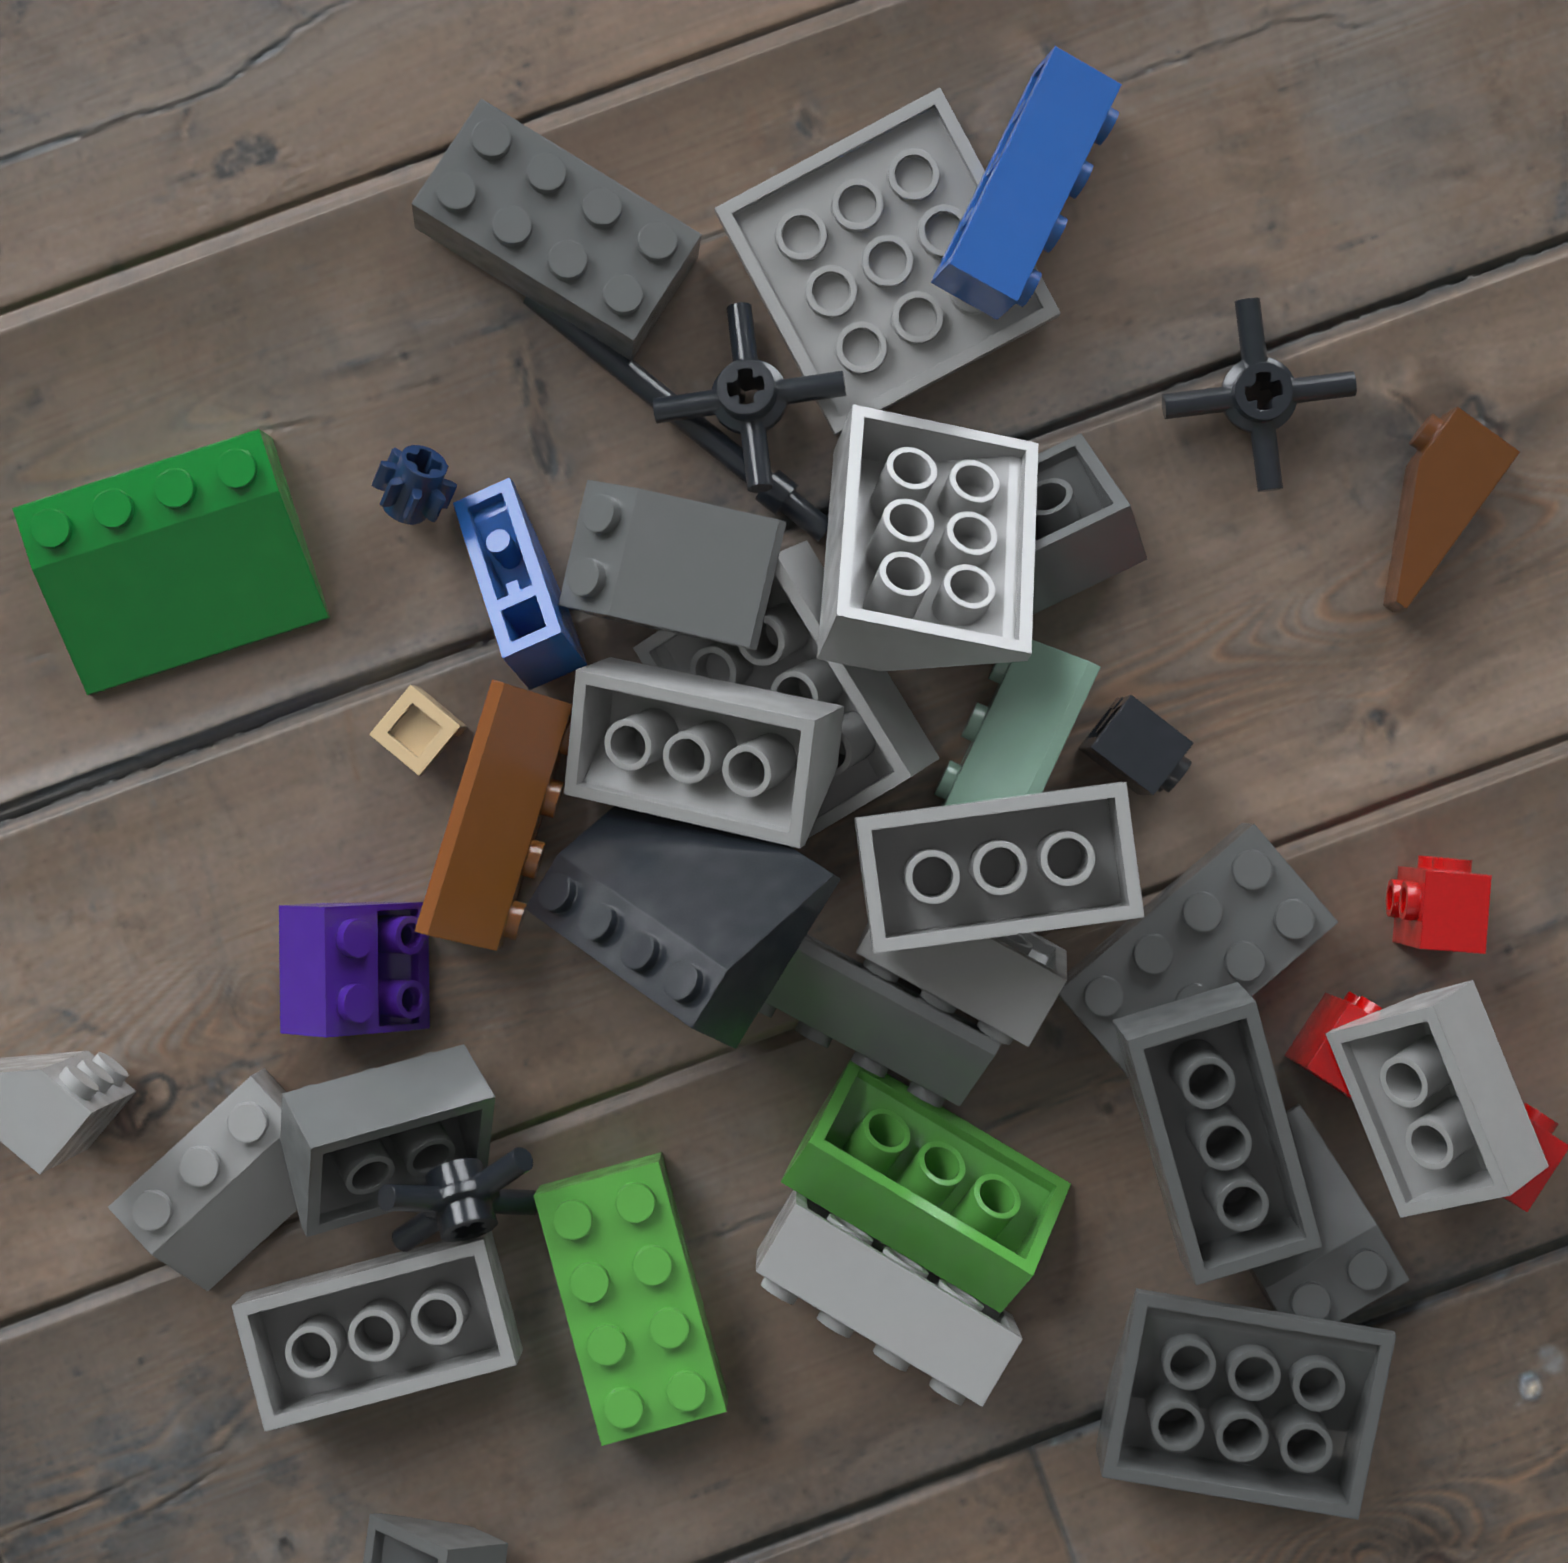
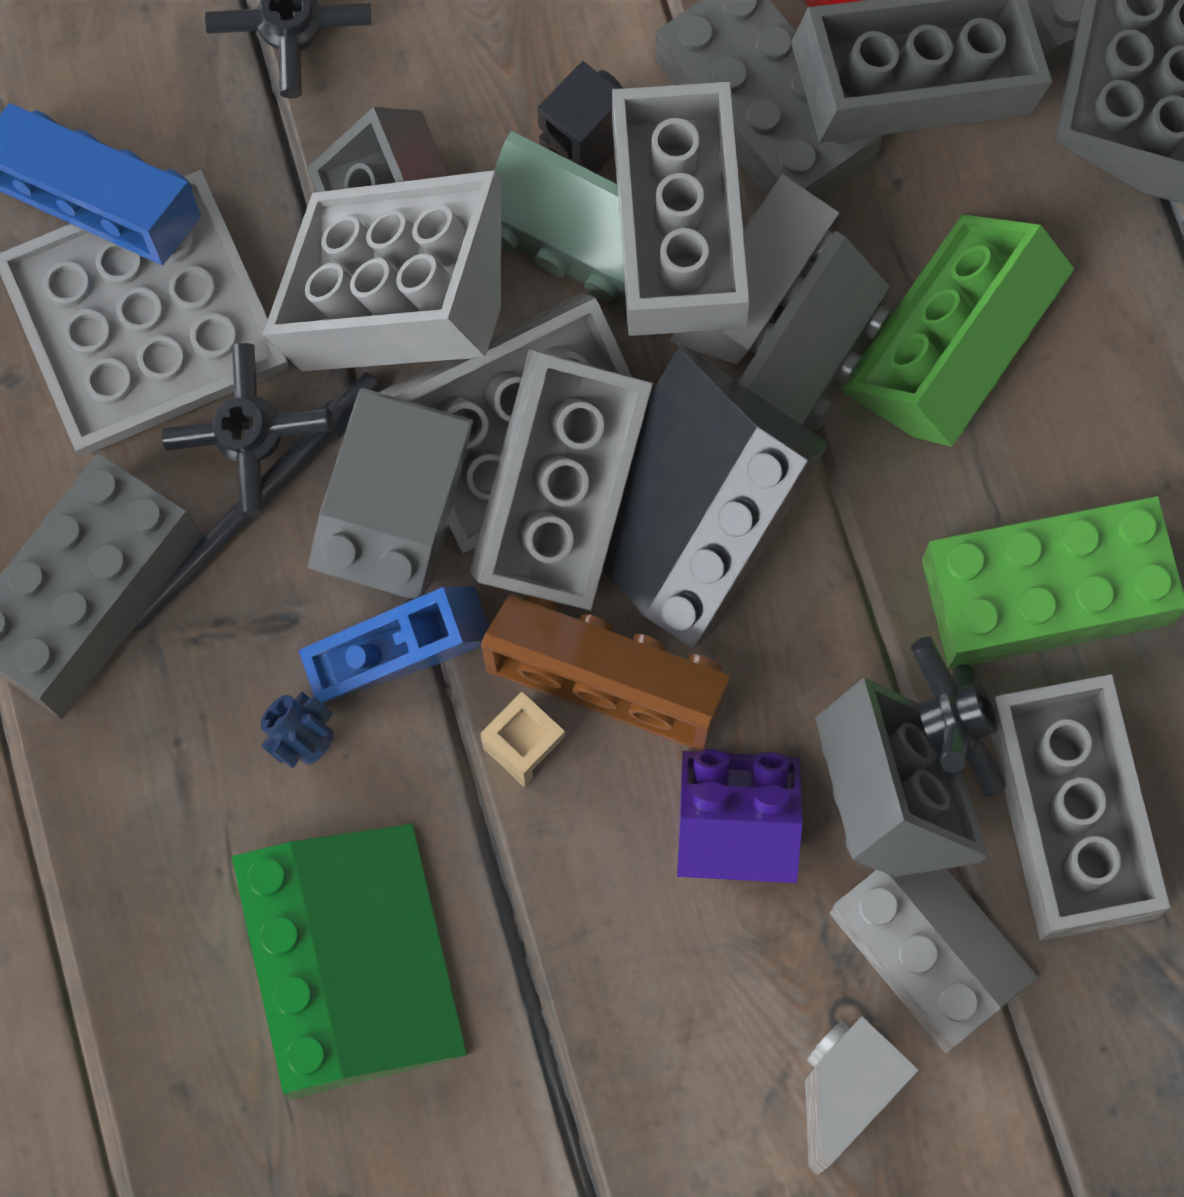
camera: 75 degrees left, 15 degrees down
(886, 1299) = (1058, 358): light grey brick -> none

